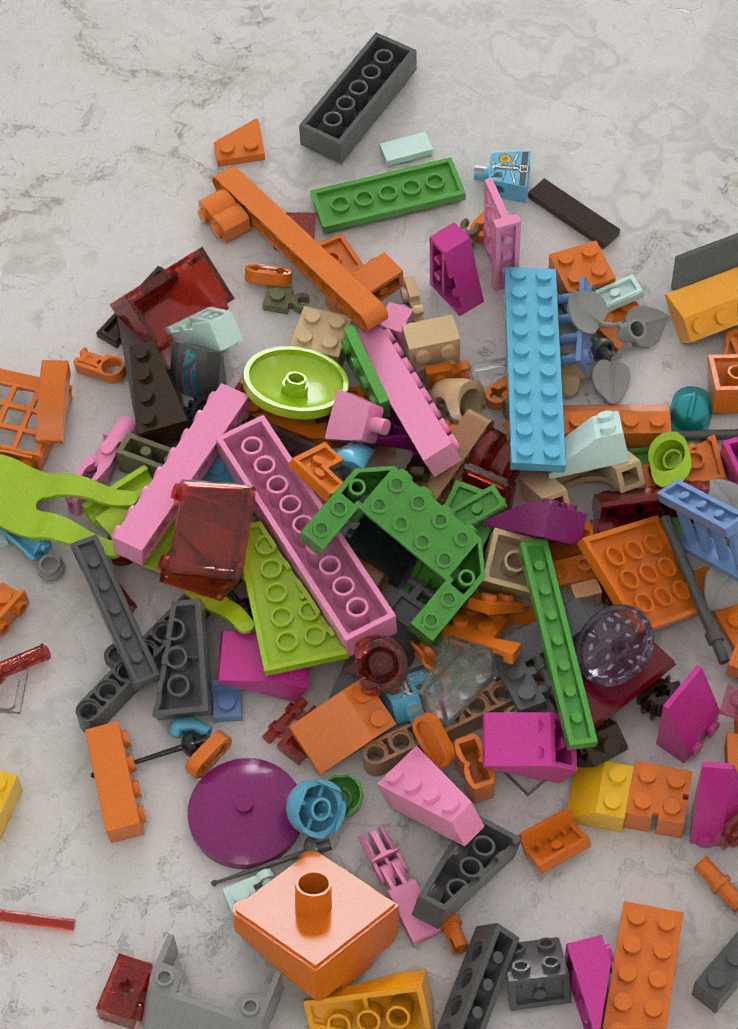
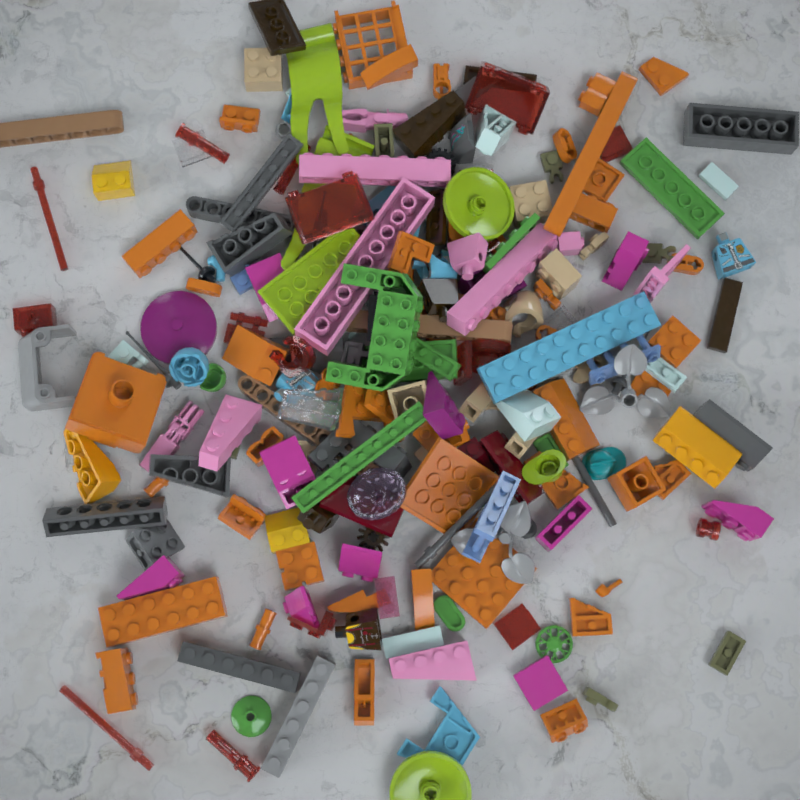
camera: 55 degrees right, 20 degrees up
(434, 740) = (266, 414): orange tile -> none

